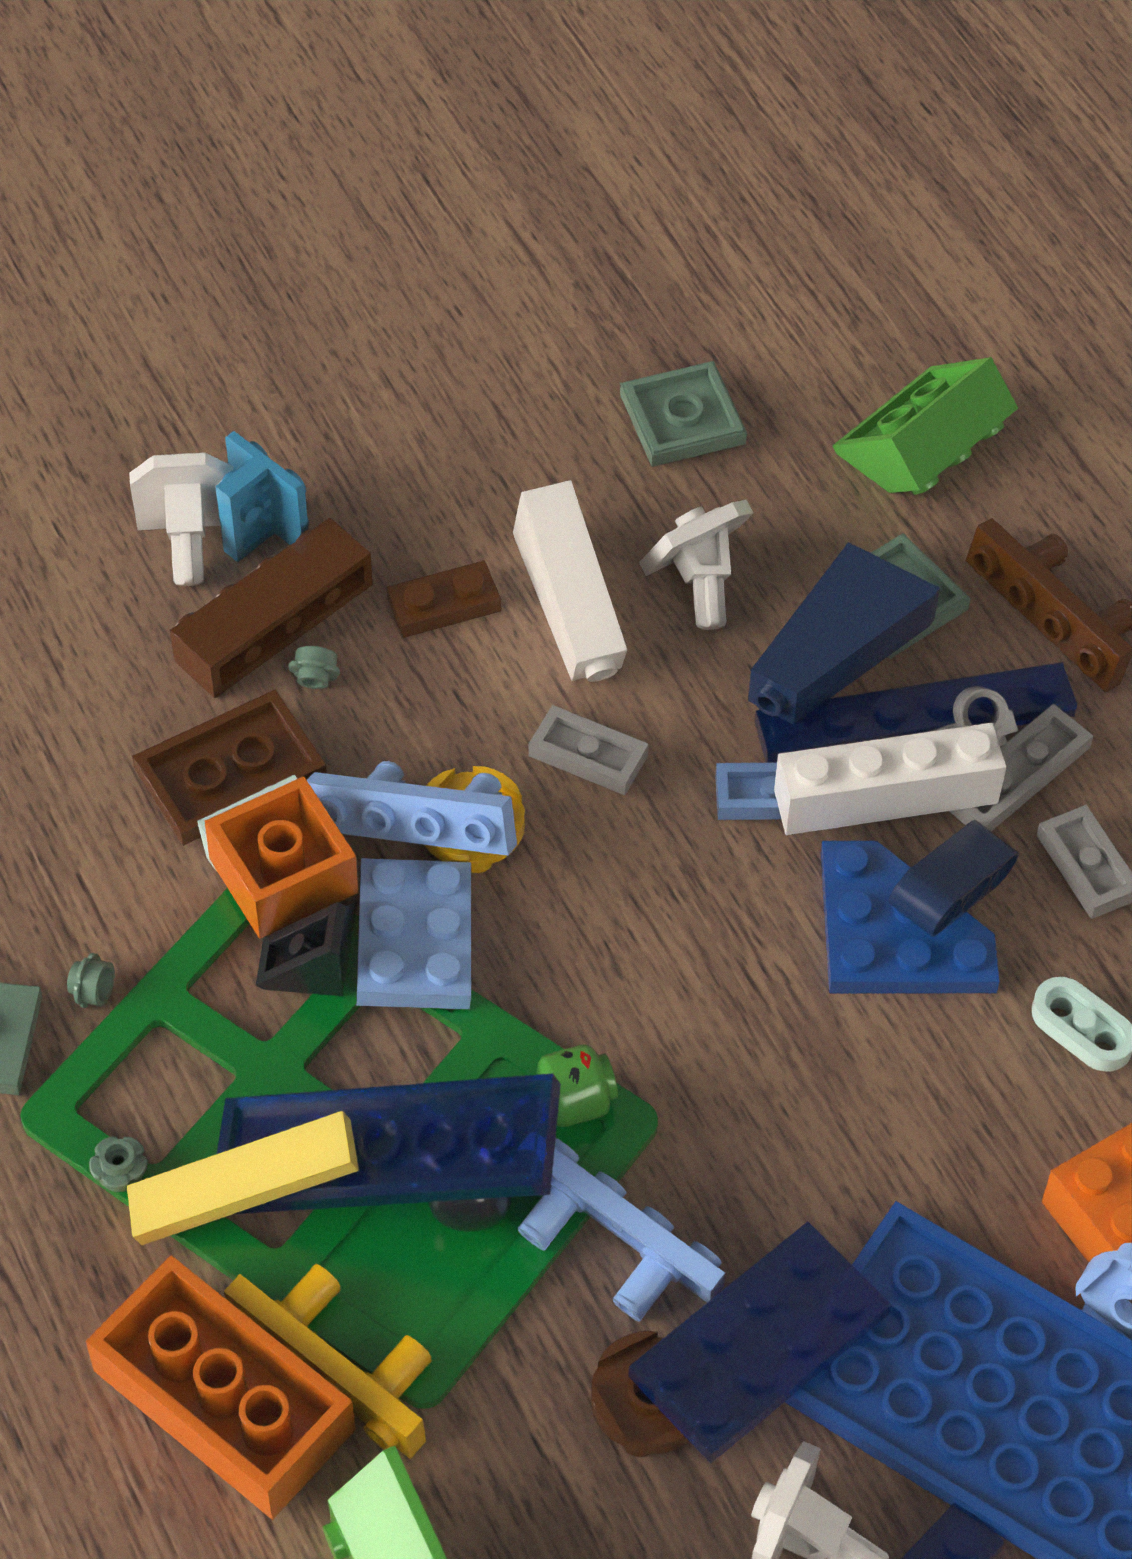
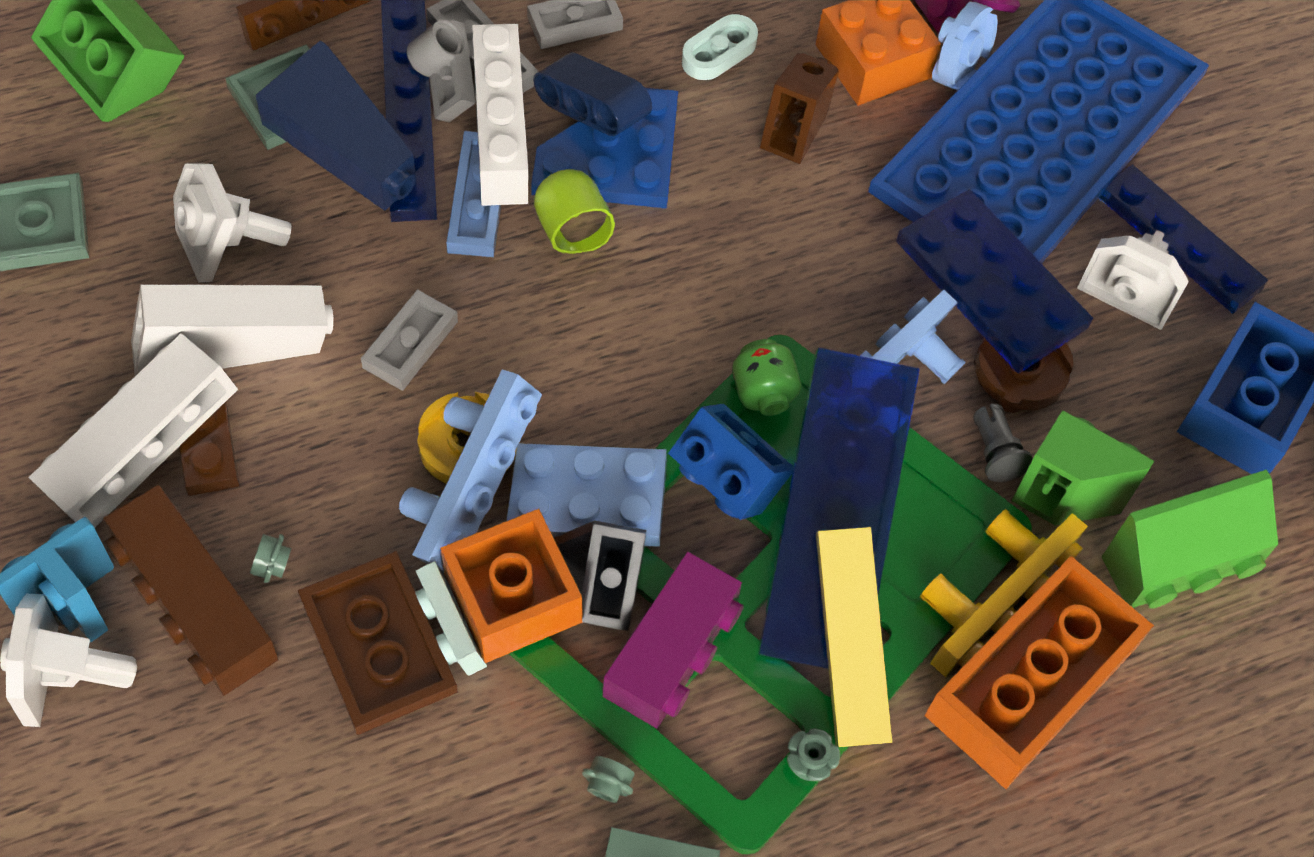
camera: 90 degrees left, 5 degrees up
(238, 1017) = (673, 641): none -> magenta brick
(431, 527) = (134, 432): none -> white brick
(457, 1043) = (730, 462): none -> blue brick
(480, 1423) = (1080, 473): none -> bright green slope
(530, 1361) = (1002, 451): none -> dark grey pin
(789, 868) = (565, 197): none -> lime helmet
(999, 1109) = (803, 88): none -> reddish brown torso

